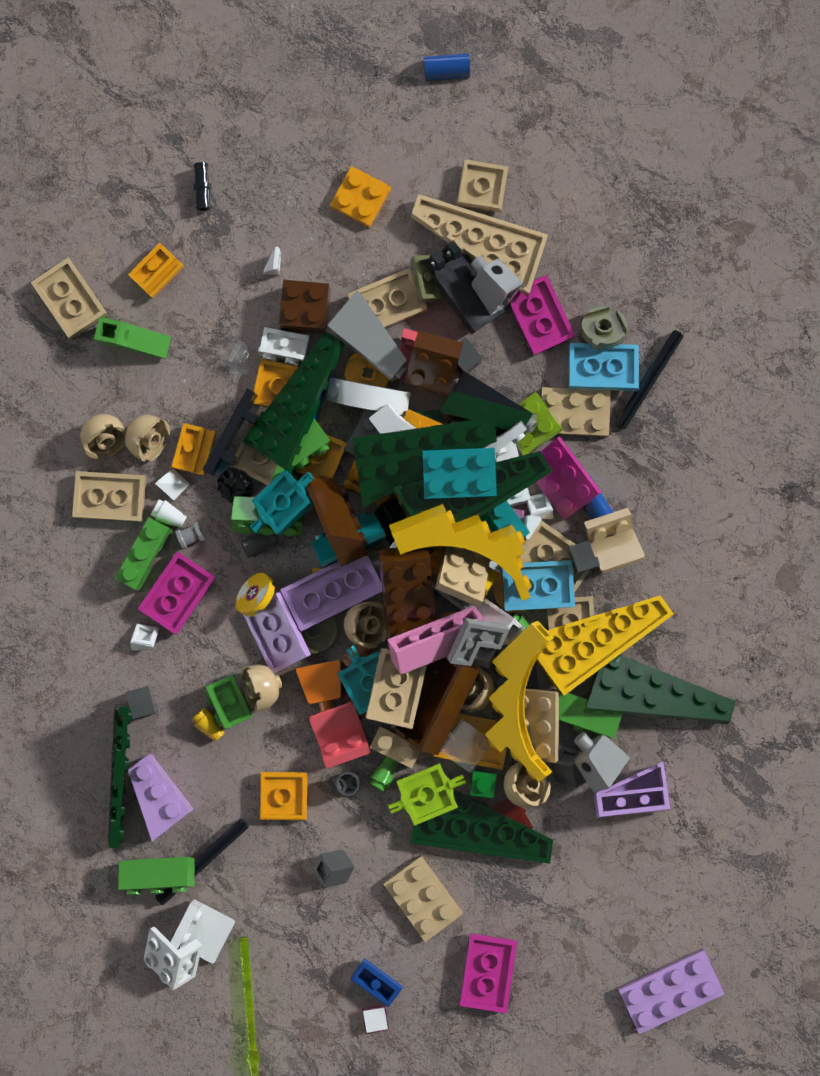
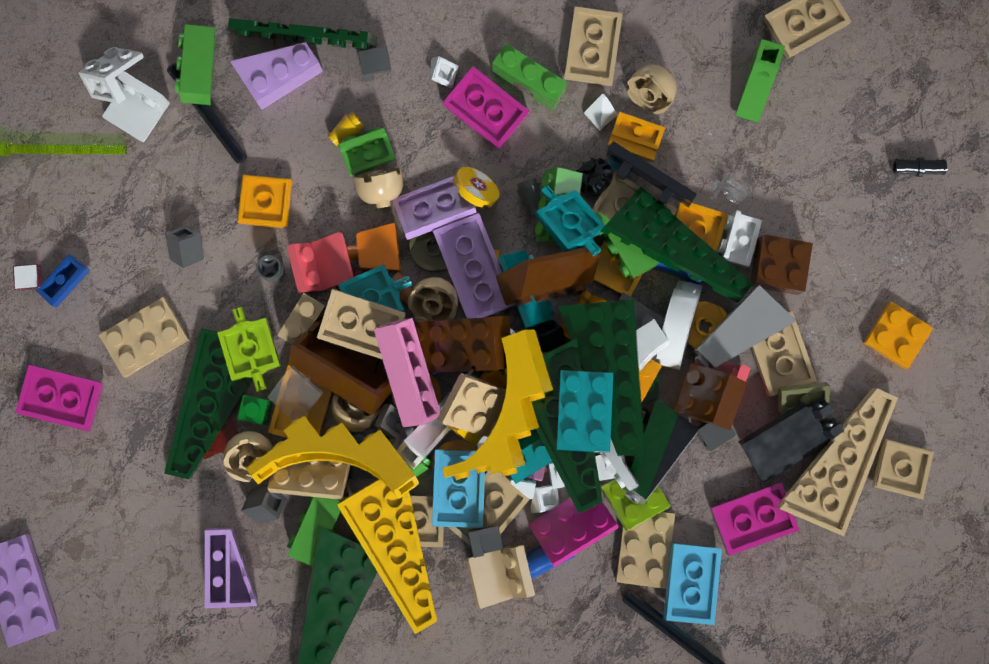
camera: 90 degrees right, 0 degrees up
(102, 436) = (657, 42): tan cylinder -> none
(156, 270) = (830, 112): light orange plate -> none
(168, 514) = (569, 104): white cone -> none
(189, 535) = (545, 125): light grey bush -> none
(273, 264) = (830, 236): white slope -> none
(384, 774) = (275, 306): bright green cone -> none
(474, 635) = (407, 411): light grey plate -> none
(494, 284) = (793, 471): light grey torso -> none
(599, 338) = (723, 585): olive plate -> none
(599, 761) = (264, 536): light grey torso -> none

